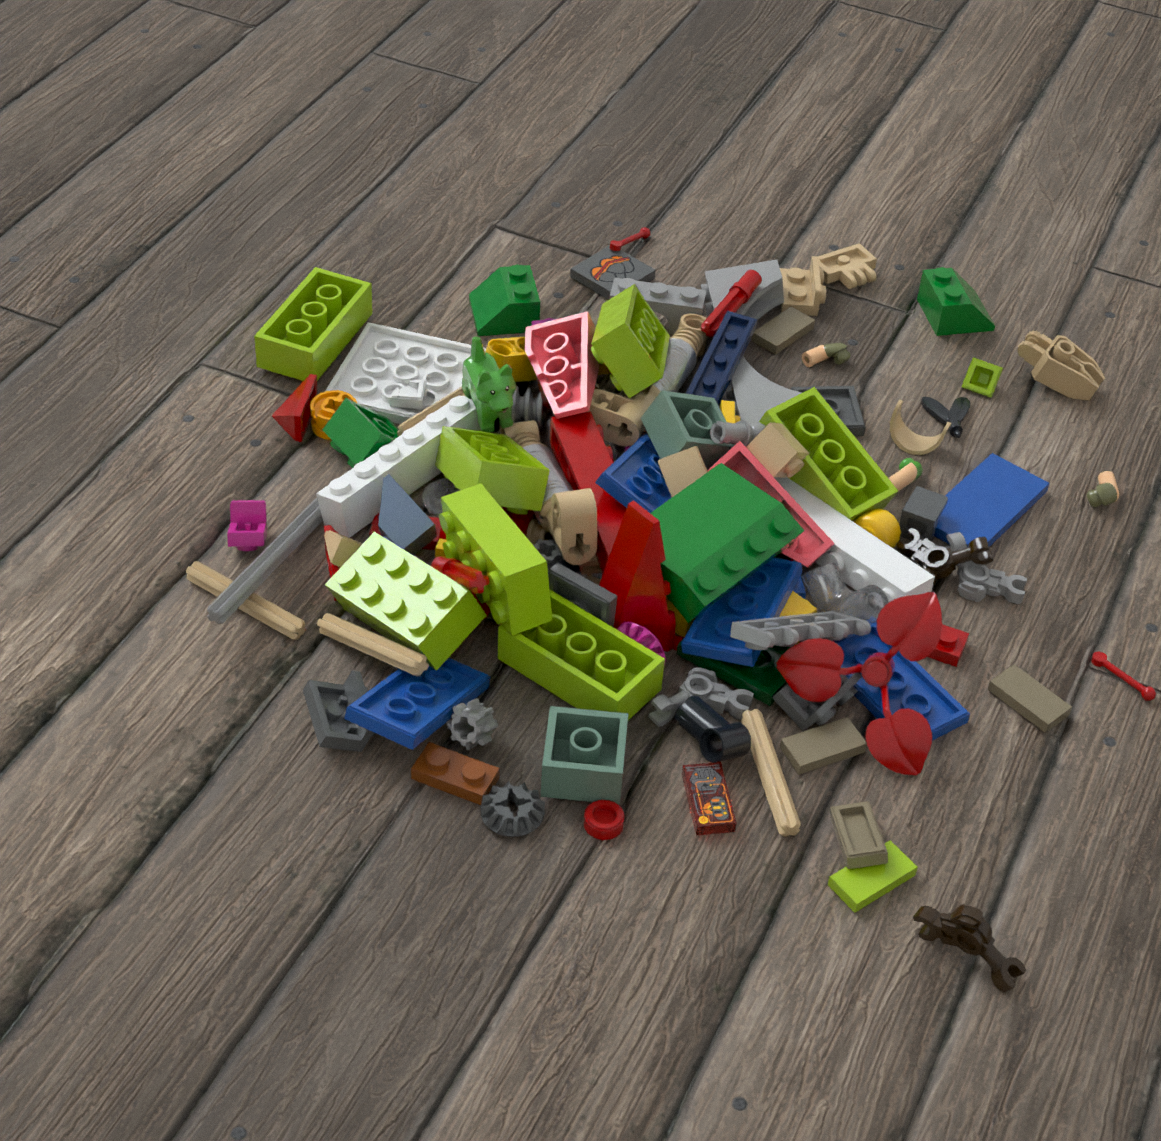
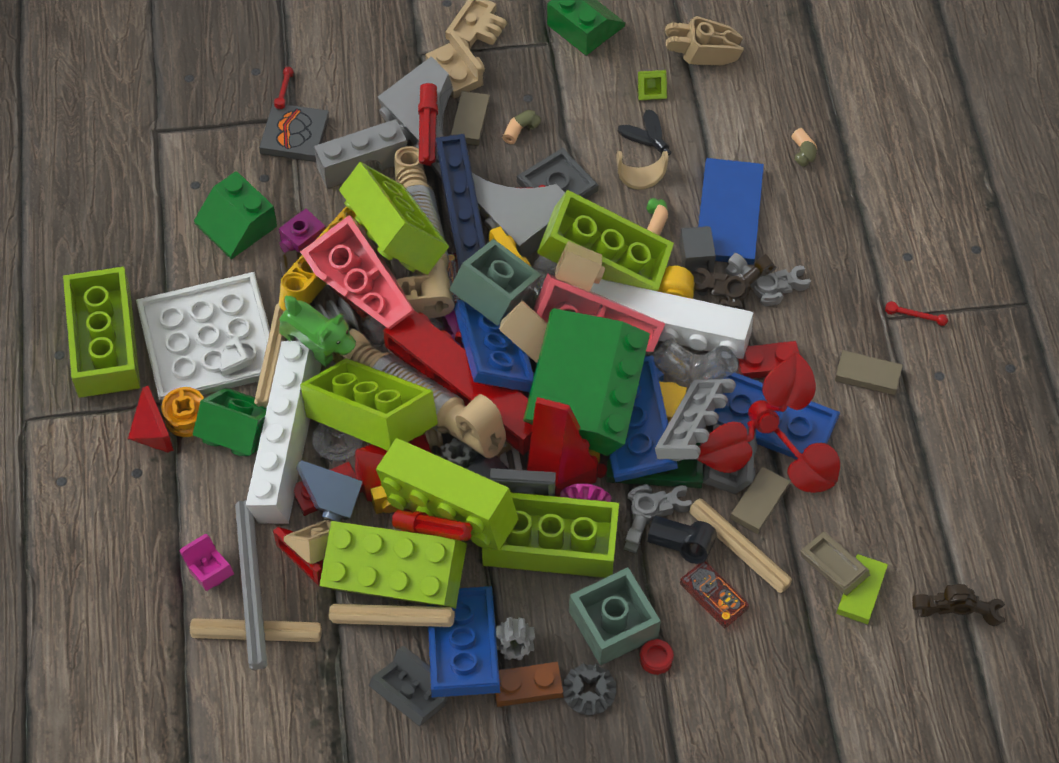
camera: 30 degrees left, 15 degrees up
(734, 432) = (539, 265): light grey pin -> none

